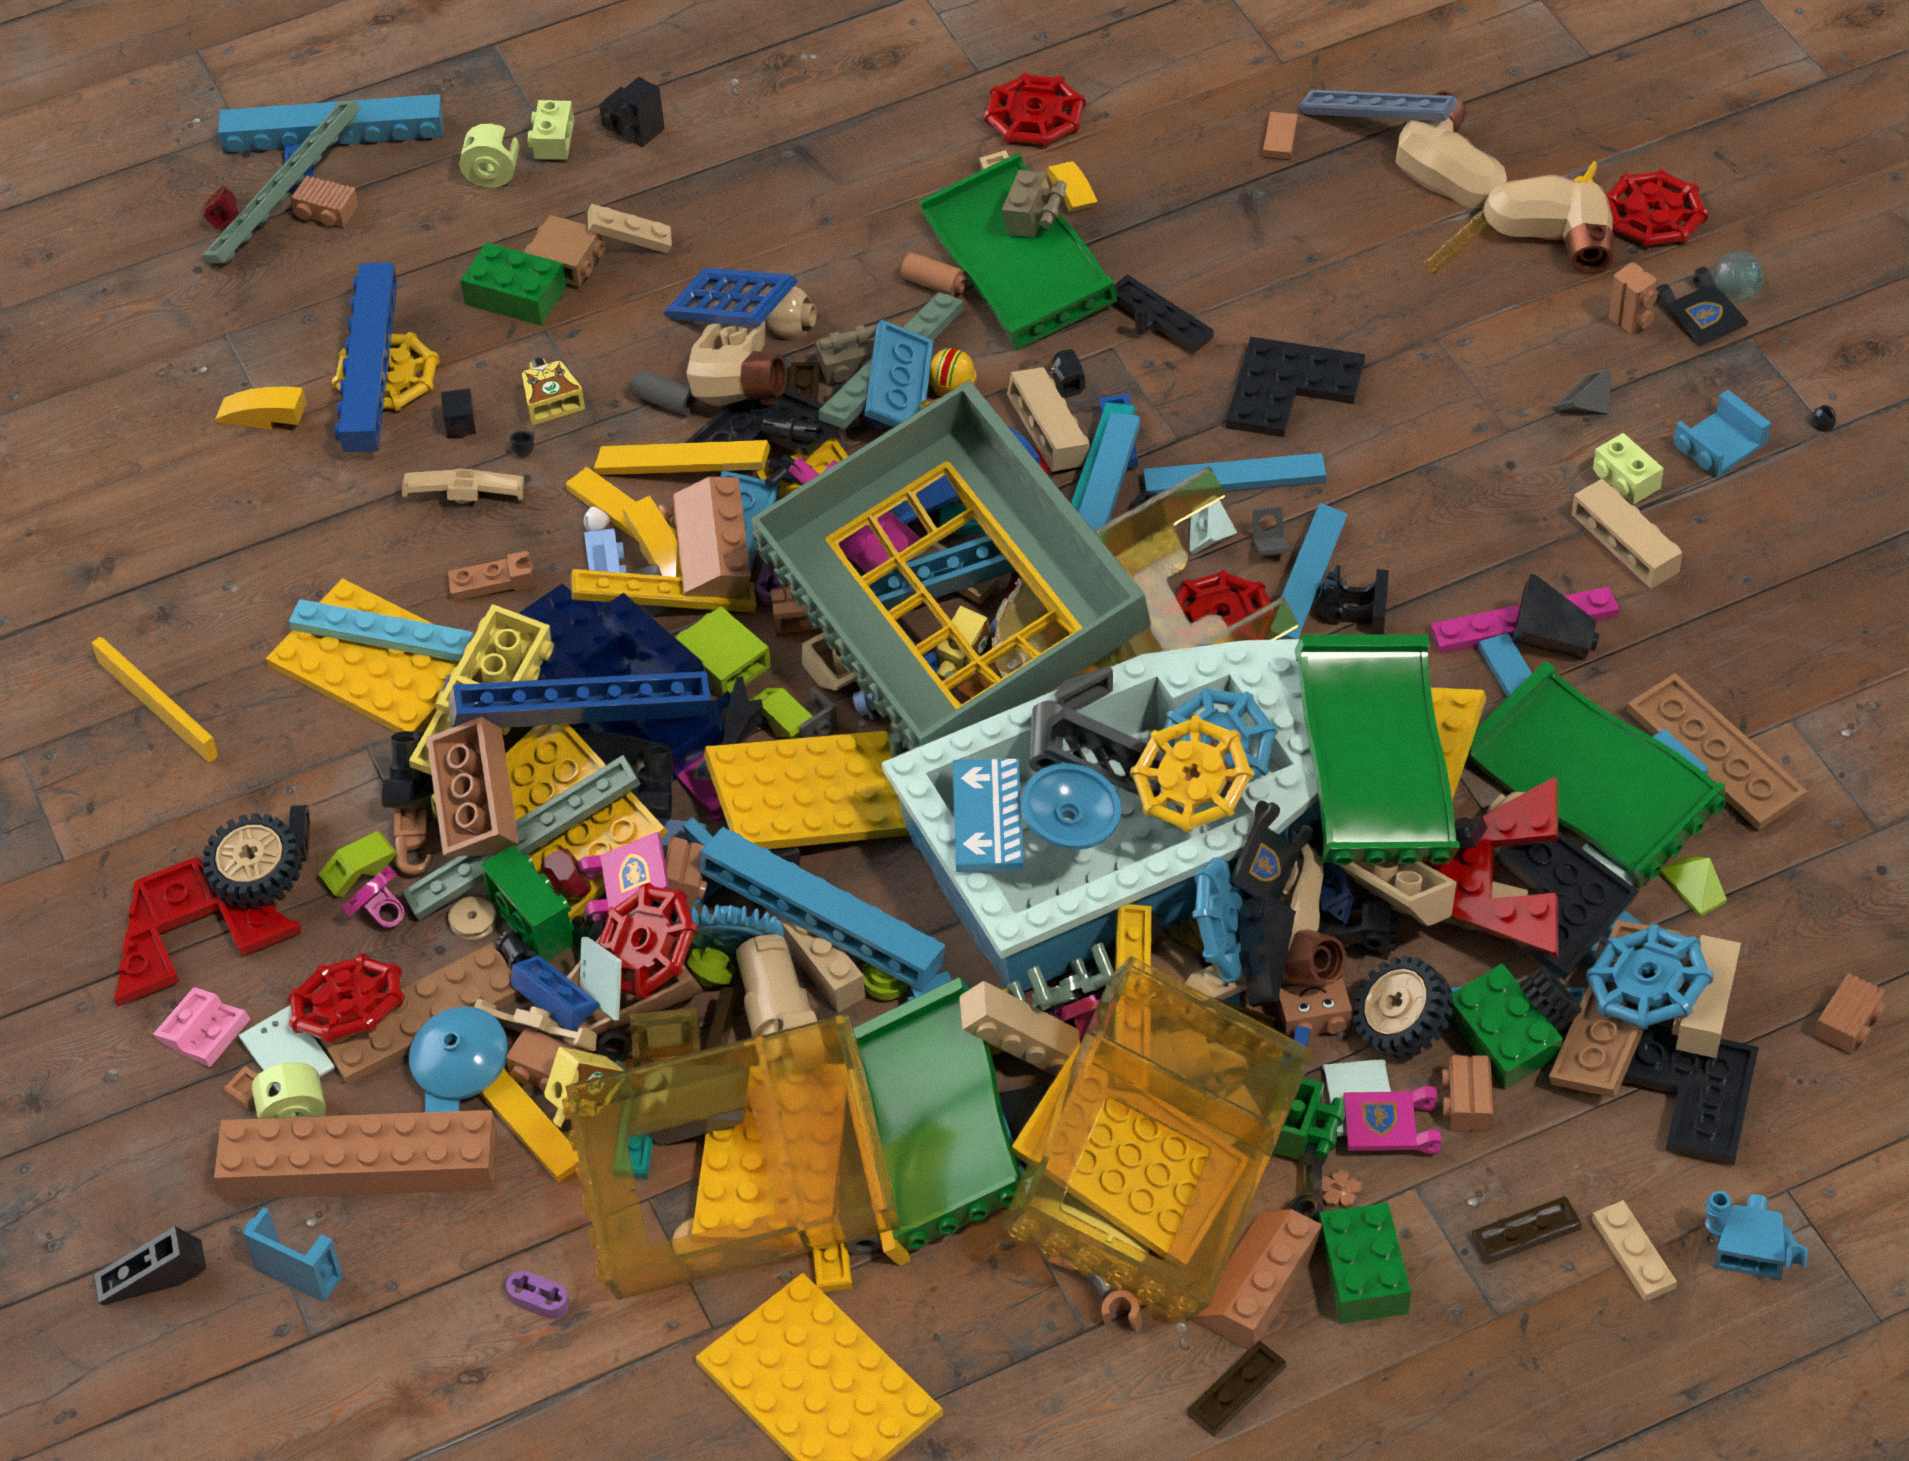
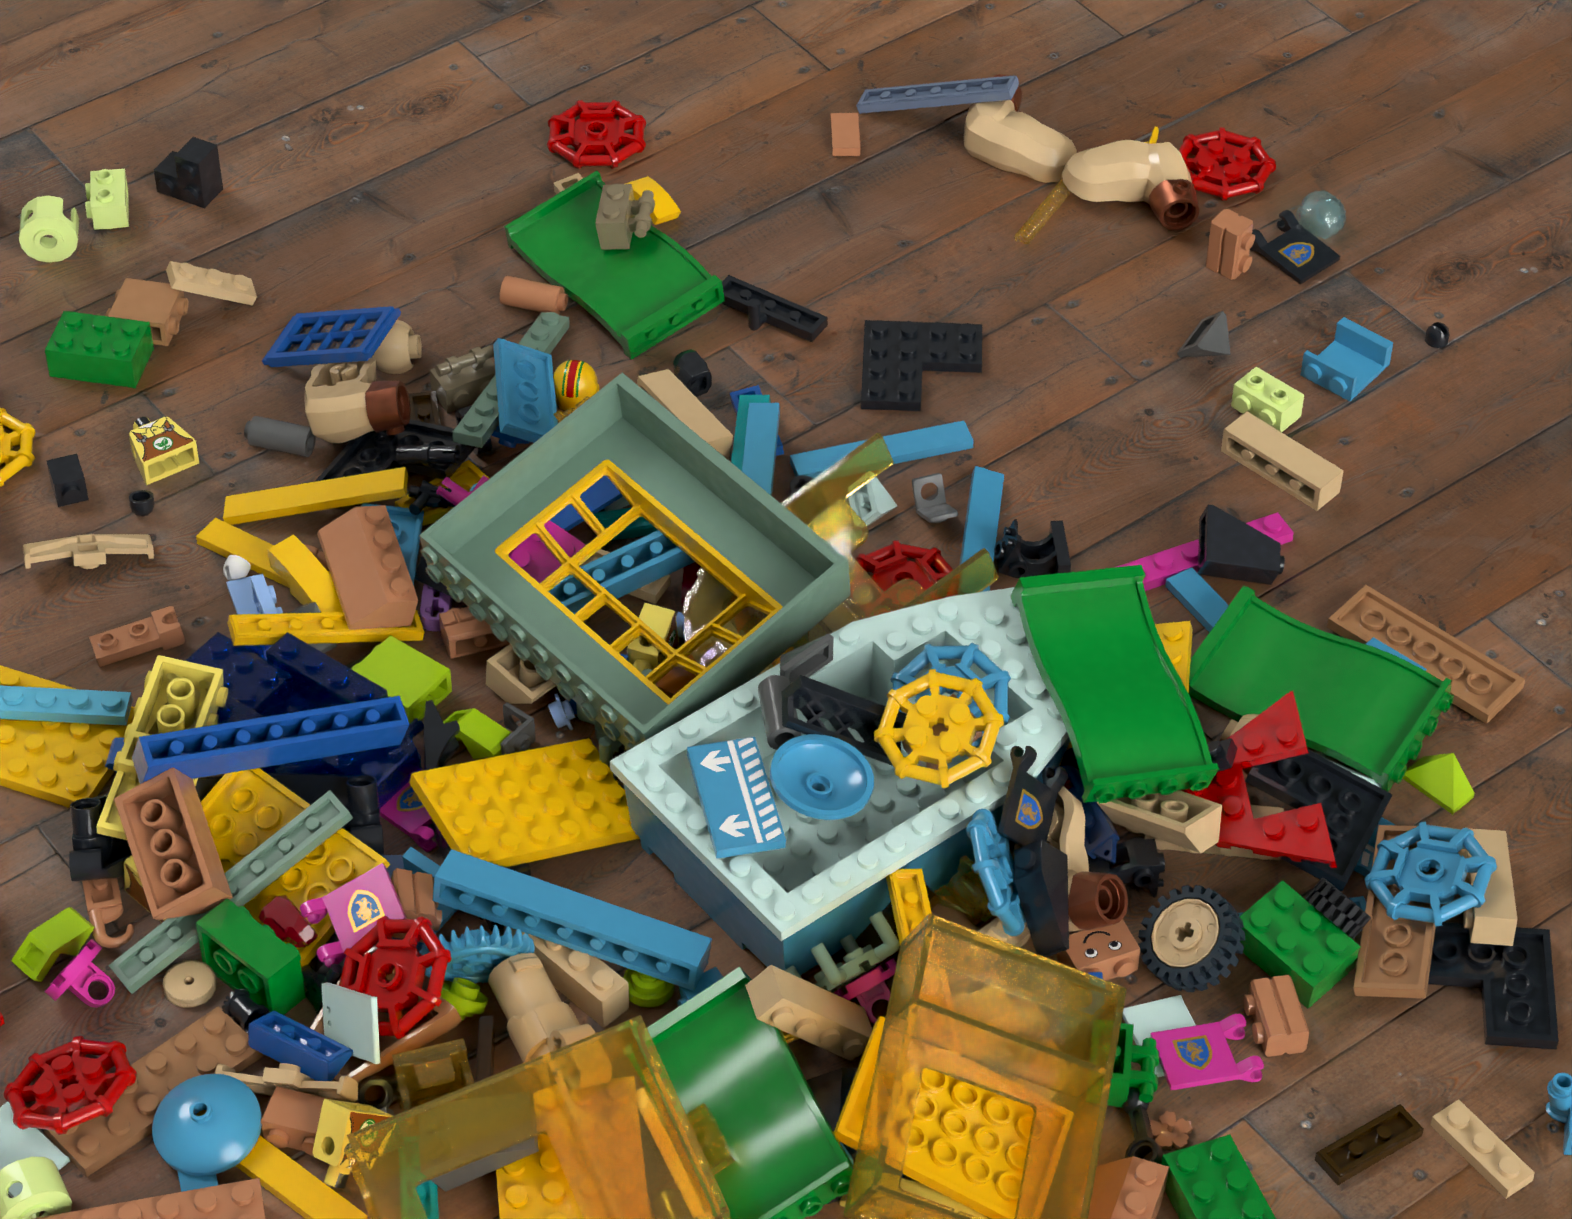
camera: 15 degrees left, 5 degrees down
(897, 1135) = (710, 1138): none -> clear yellow plate

